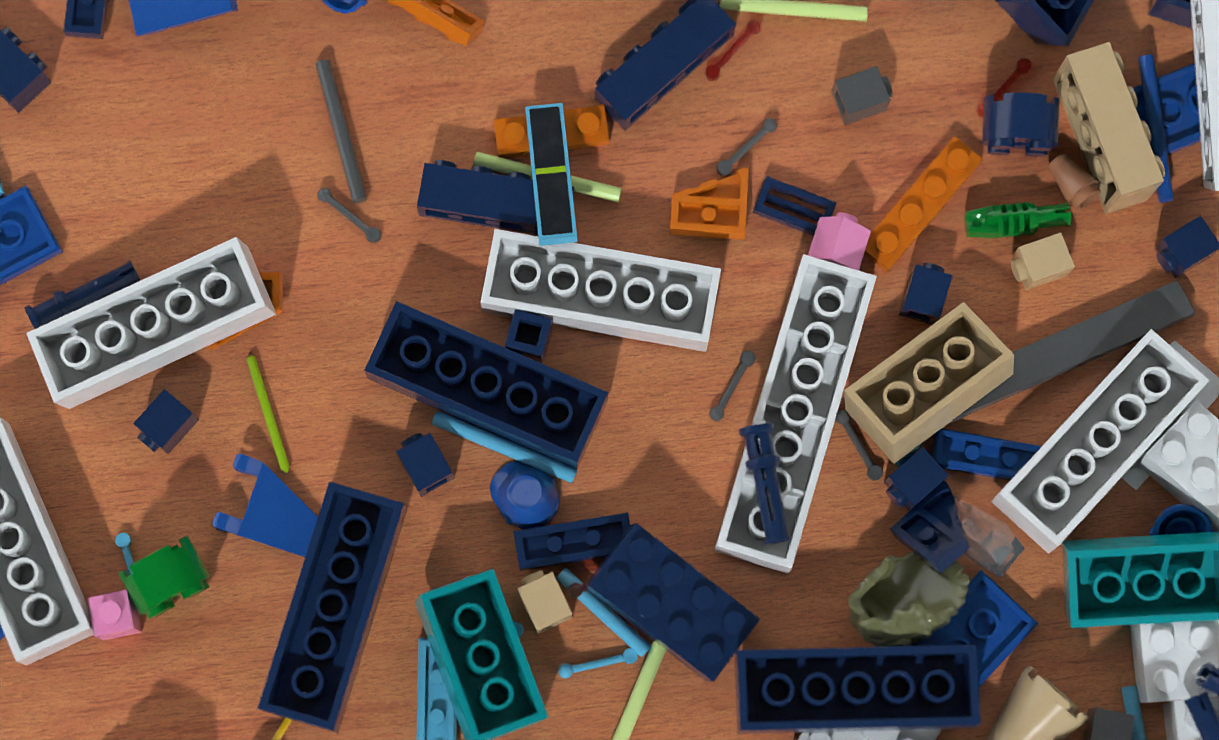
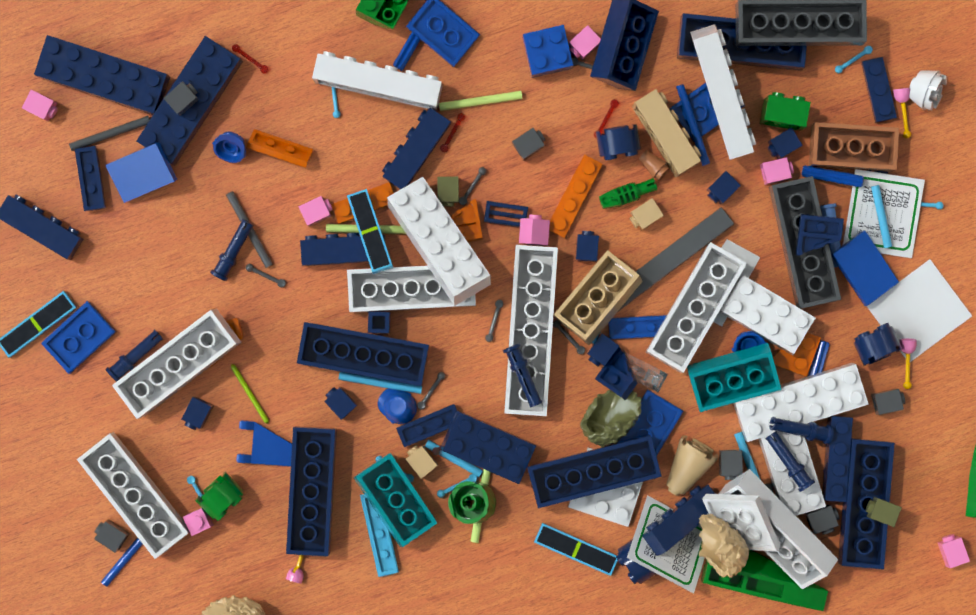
camera: 10 degrees left, 10 degrees up
(291, 168) = (228, 259): none -> dark blue pin
(464, 123) = (316, 210): none -> bright pink brick
(568, 503) = (441, 376): none -> dark grey hinge
(604, 680) = (483, 505): none -> green brick
(670, 216) = (439, 241): none -> white brick
(703, 141) = (448, 190): none -> olive brick

